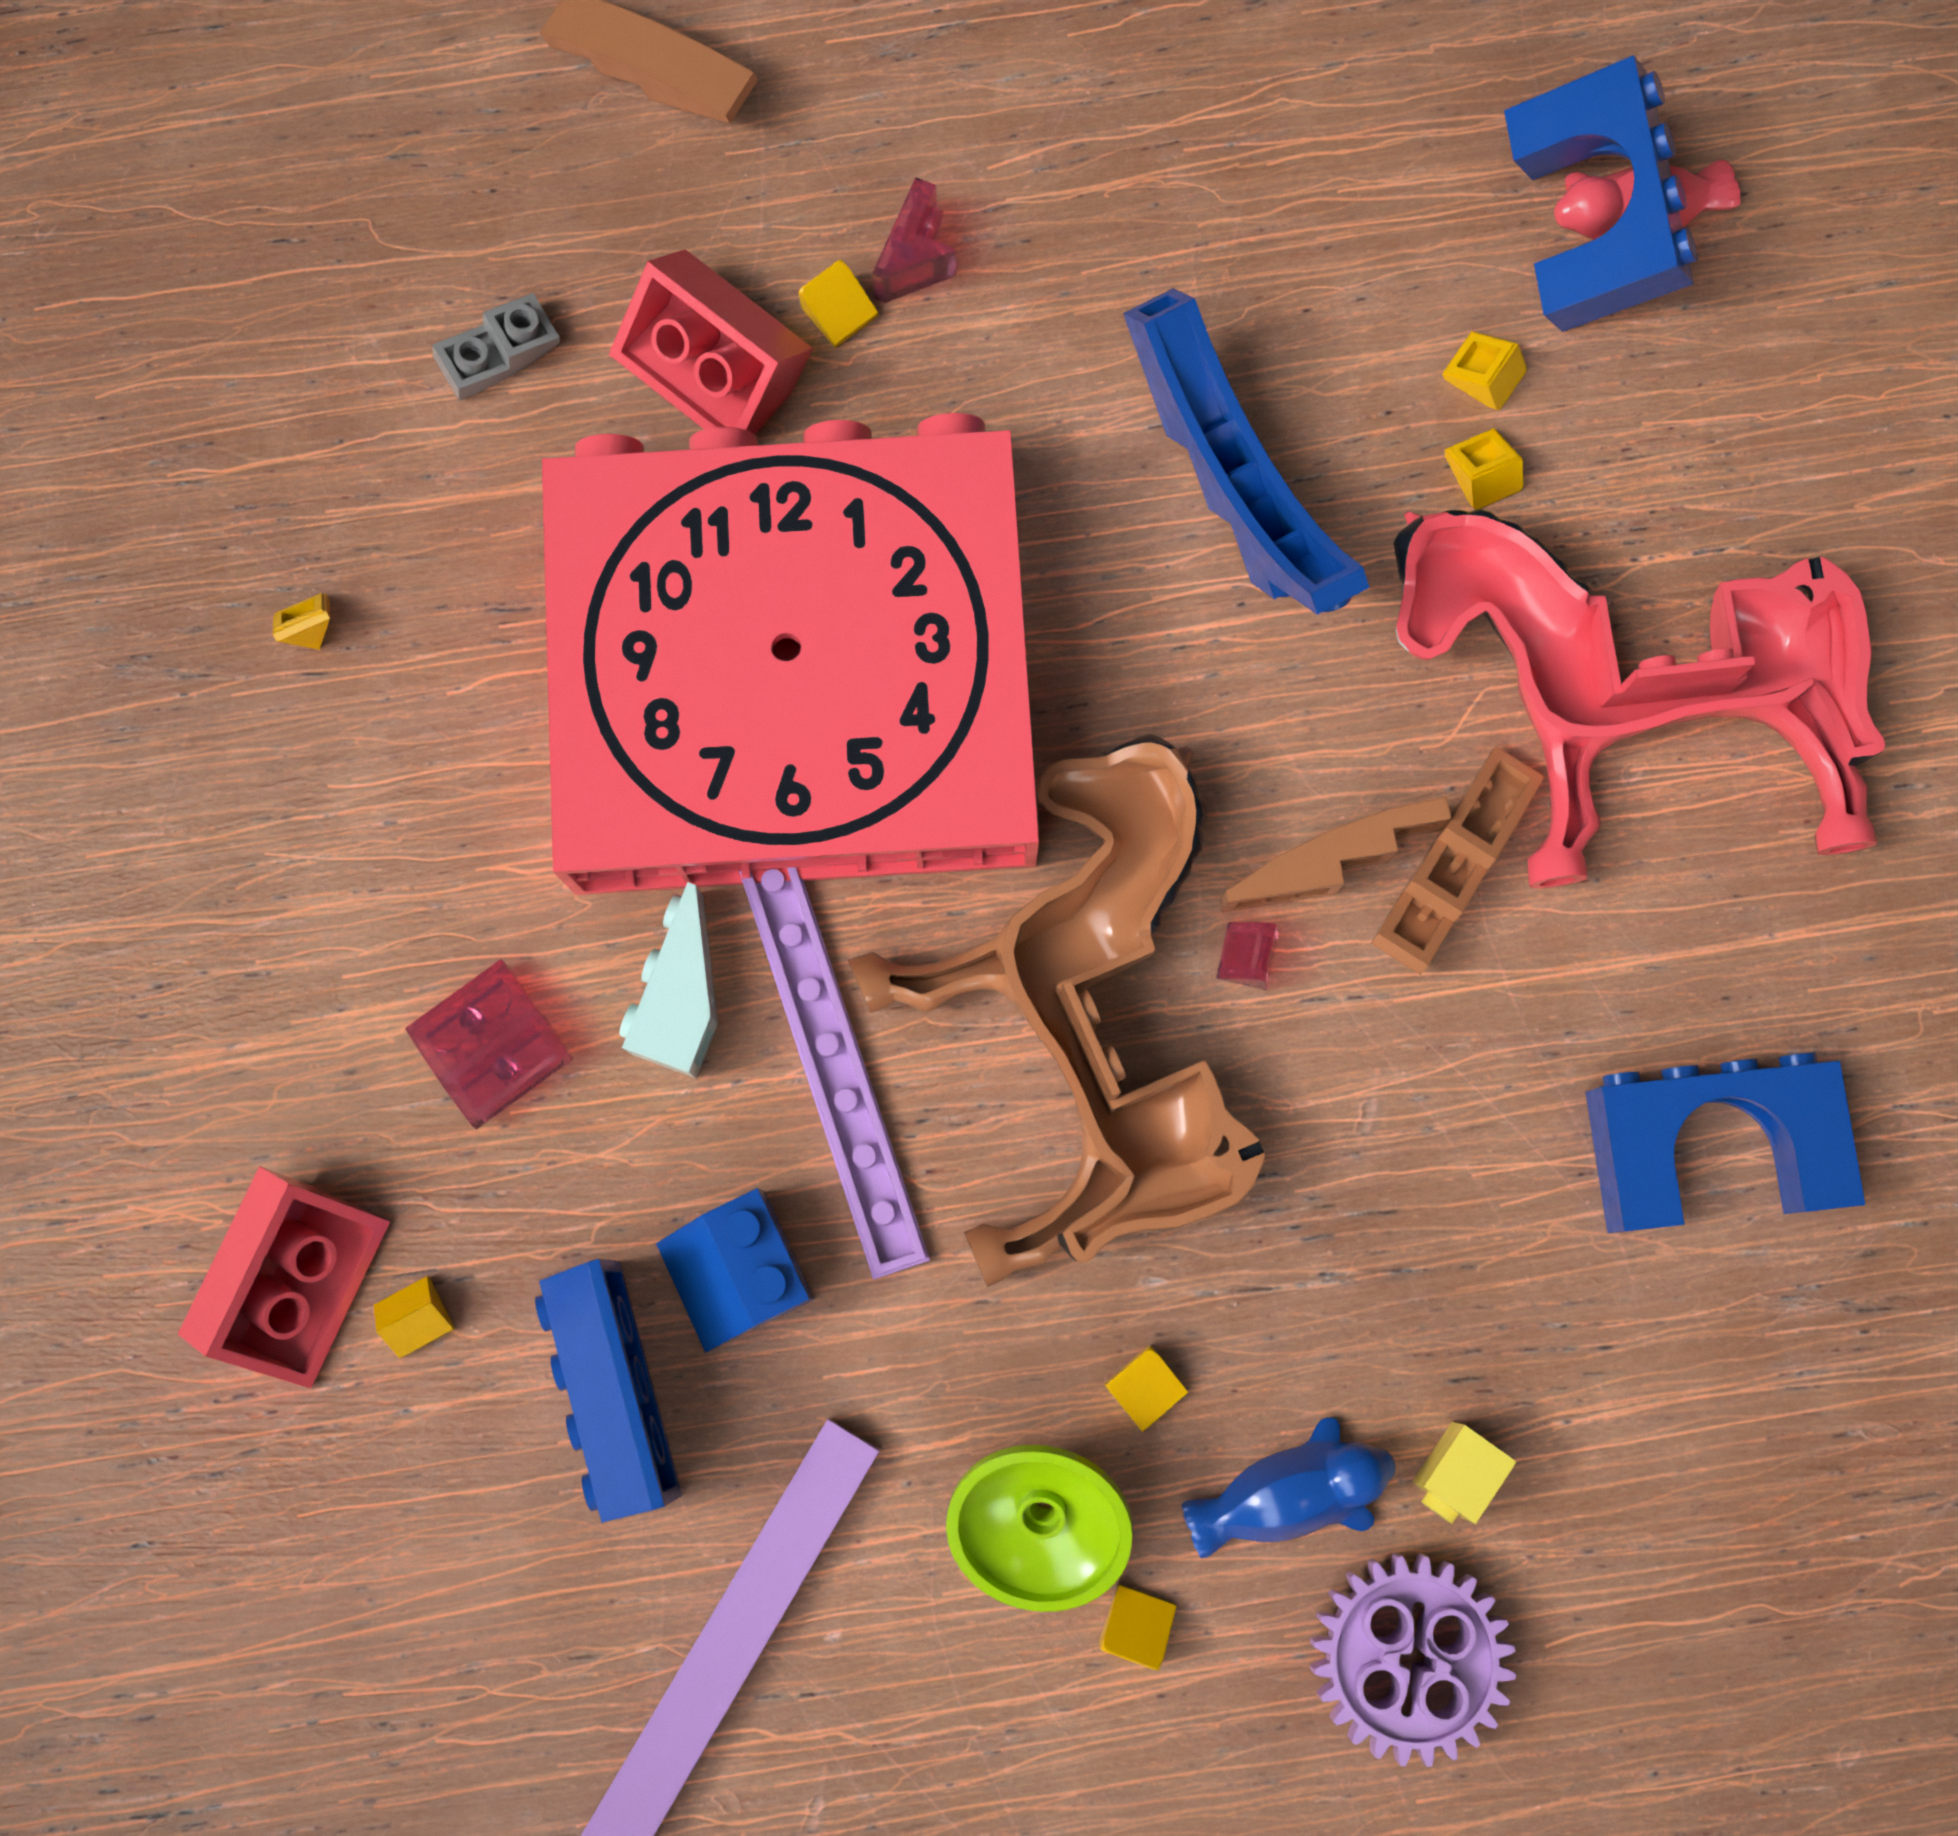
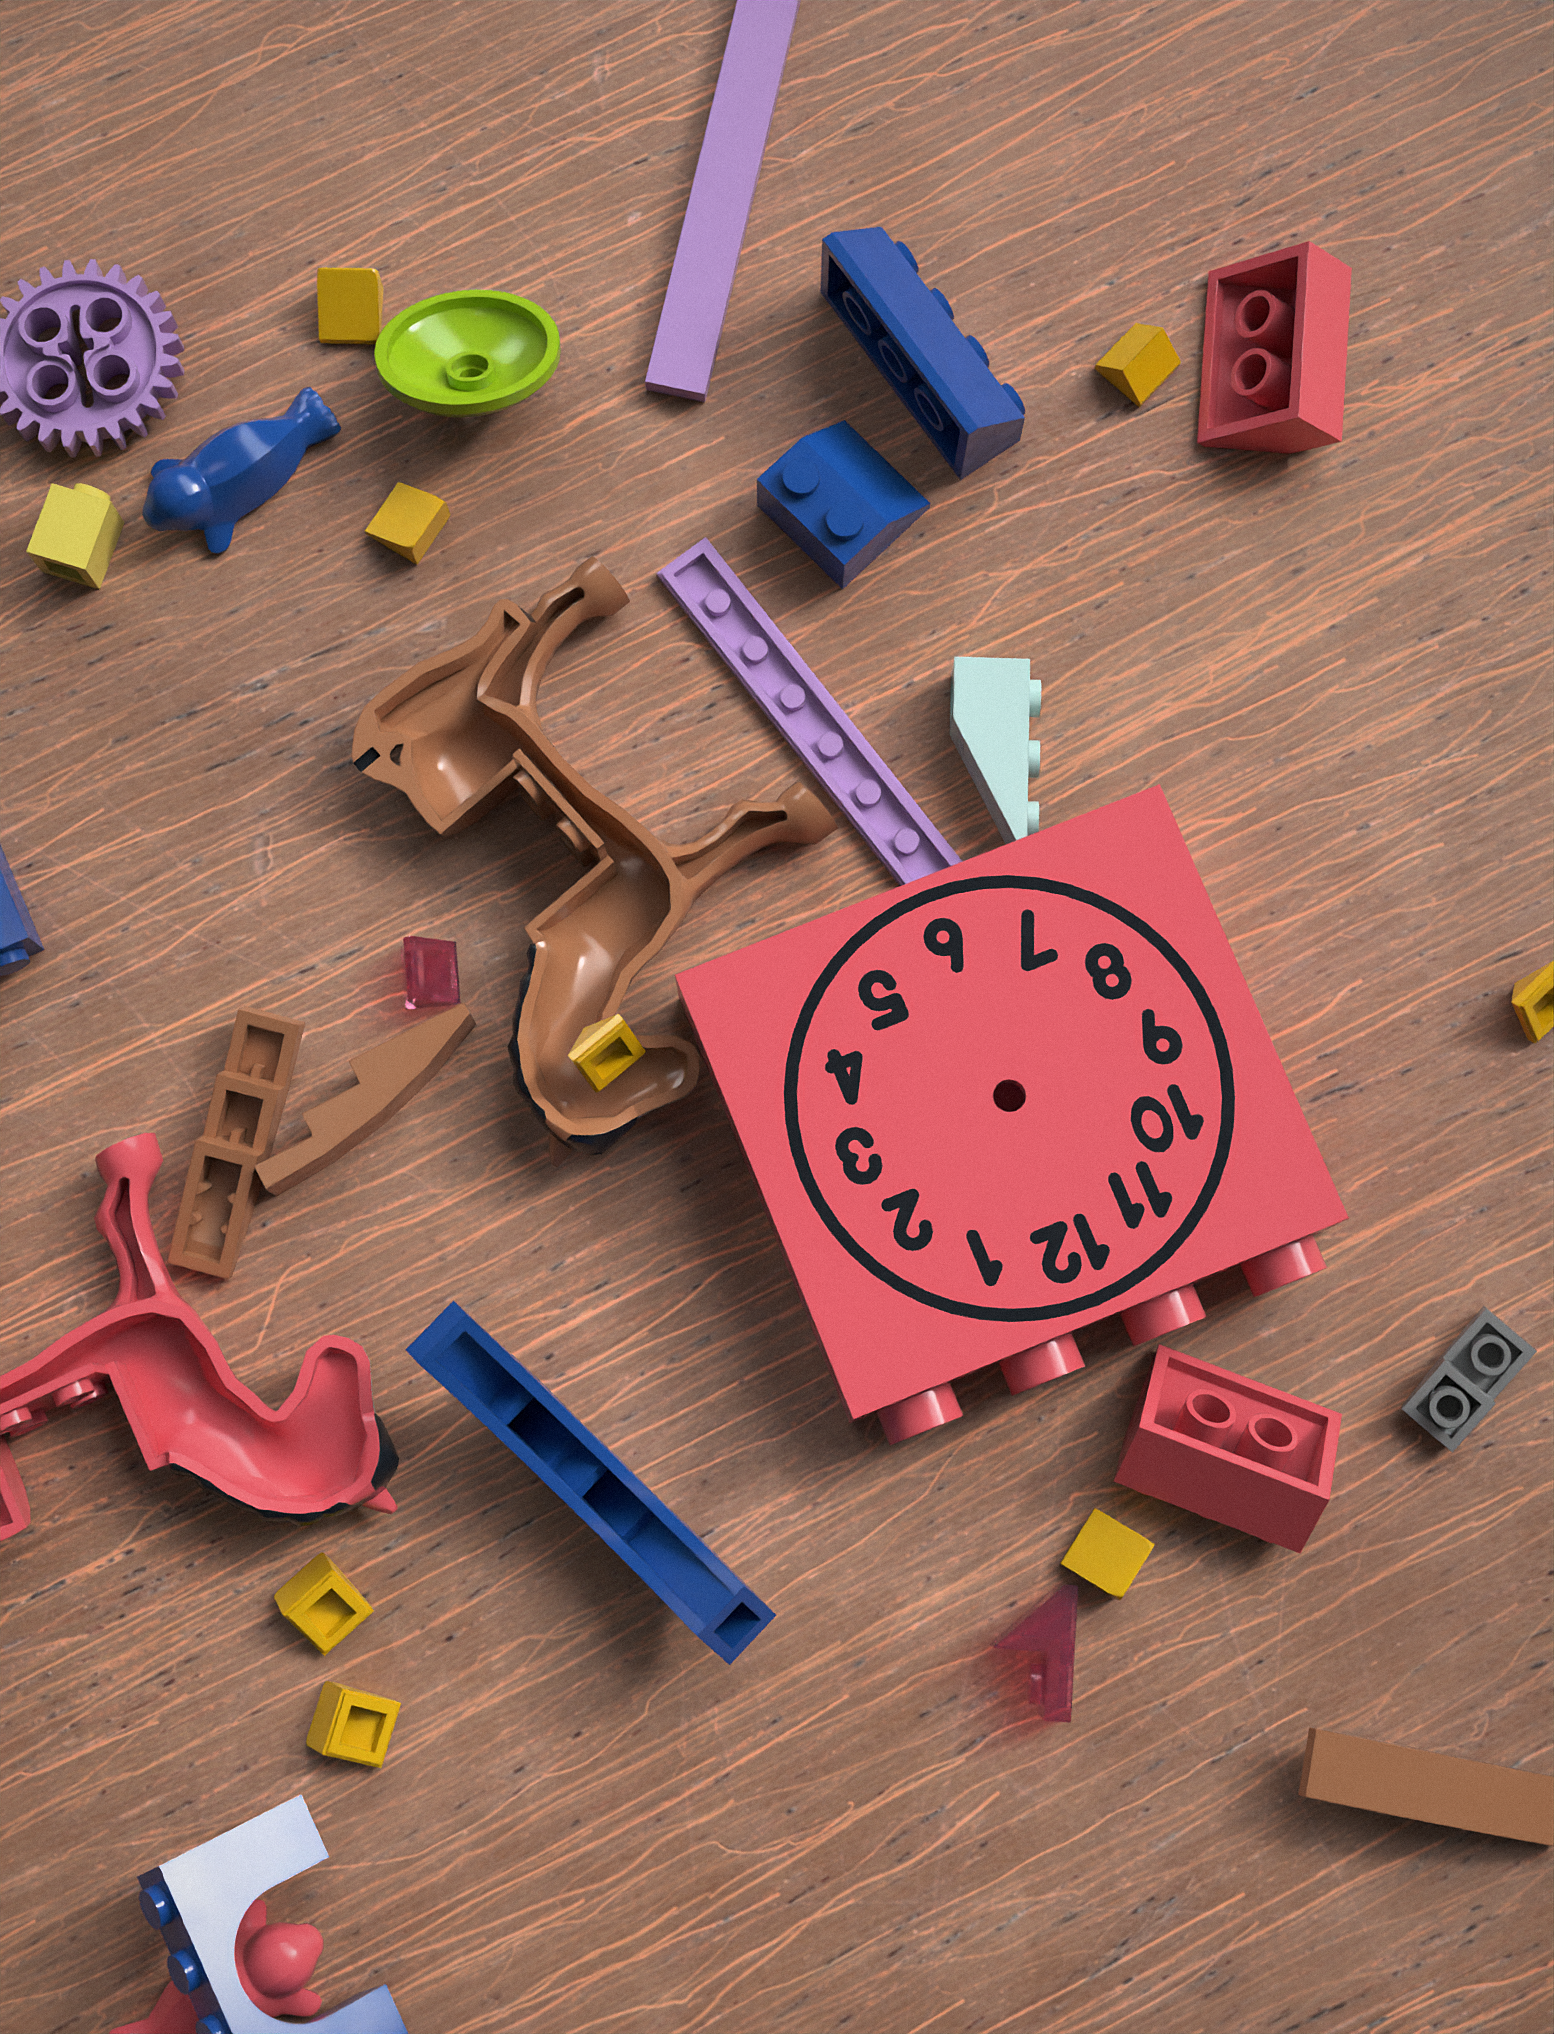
camera: 160 degrees right, 0 degrees up
(488, 1044) = (1168, 634): clear pink slope -> none
(1120, 811) = (605, 1051): none -> yellow slope

